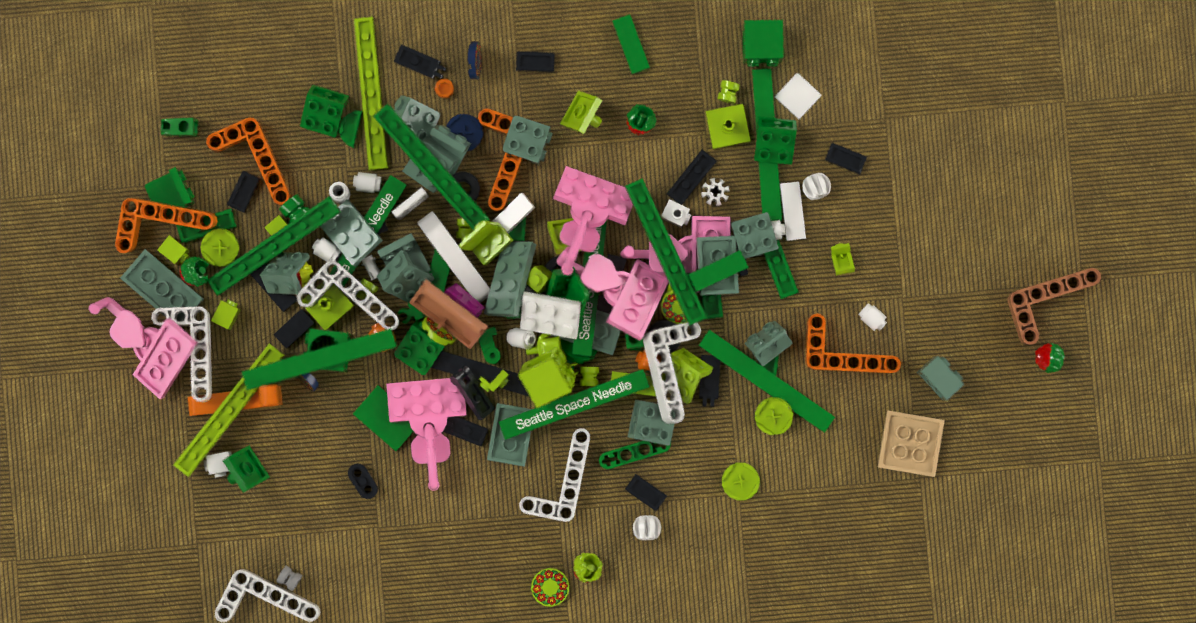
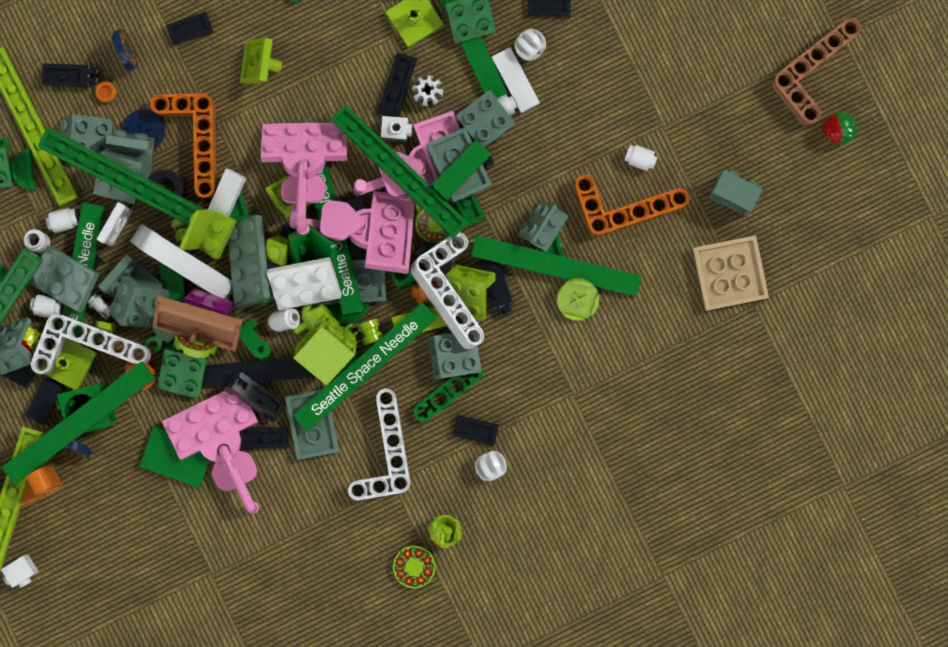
camera: 20 degrees left, 0 degrees up
(245, 469) = (48, 567): green tile -> none
(362, 481) = (176, 532): black plate -> none
(499, 381) = (279, 372): lime bracket -> none
(527, 139) = (211, 111): sand green bracket -> none
(641, 119) = (321, 45): green piece -> none
(740, 481) = (569, 380): lime tile -> none
(781, 272) = (527, 148): green tile -> none
(842, 259) = (585, 109): lime bracket -> none

